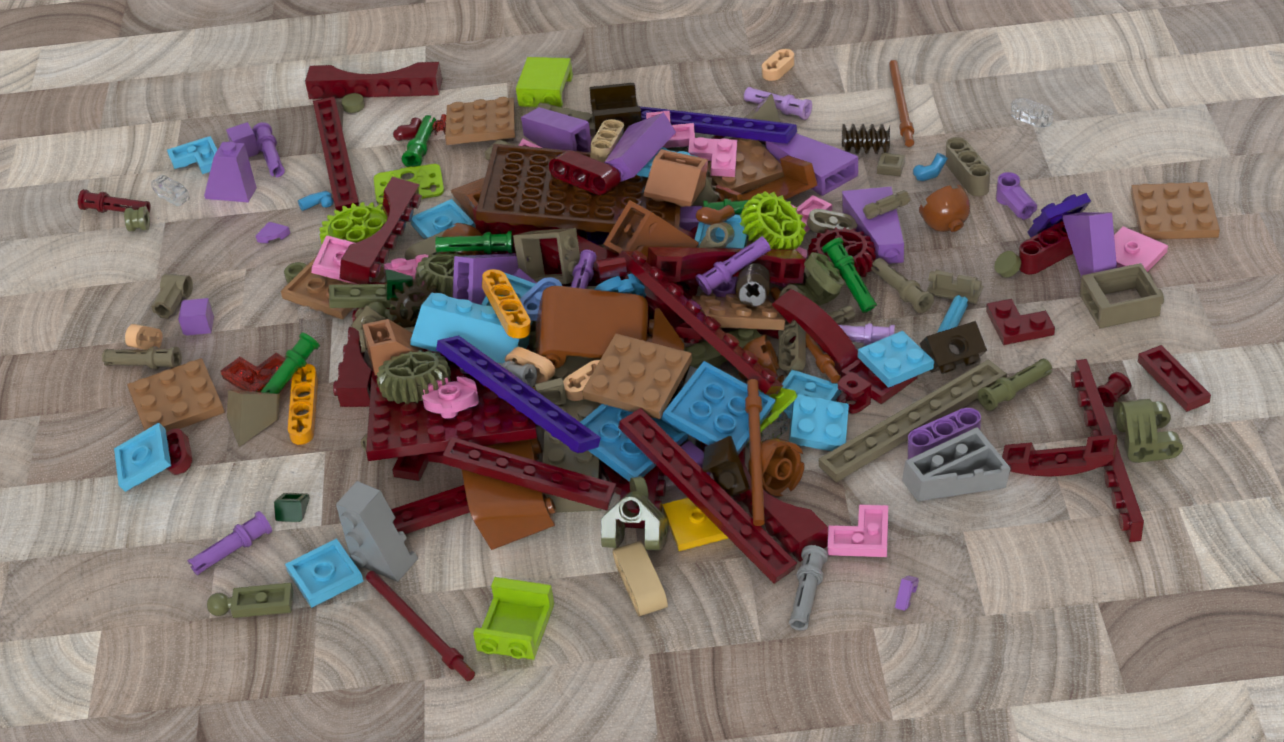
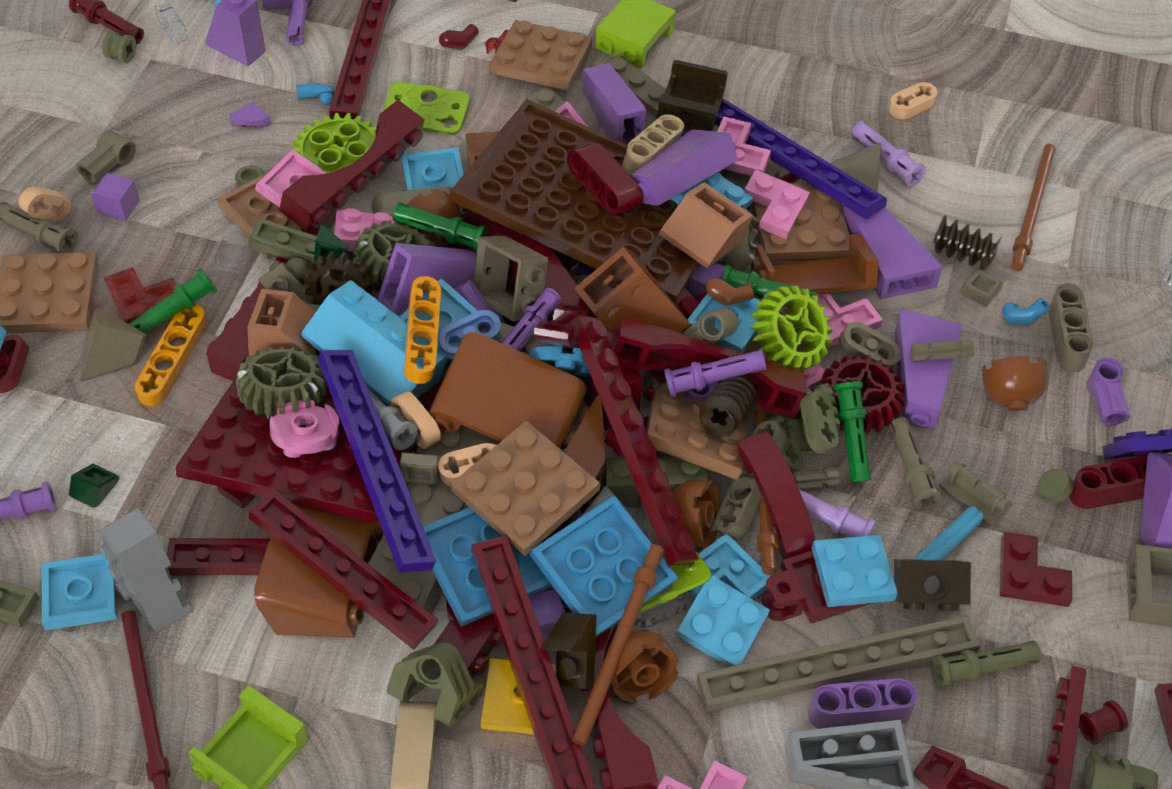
camera: 15 degrees right, 10 degrees up
(418, 146) = (457, 63): green pin -> none
(638, 484) = (460, 637): olive tile -> none

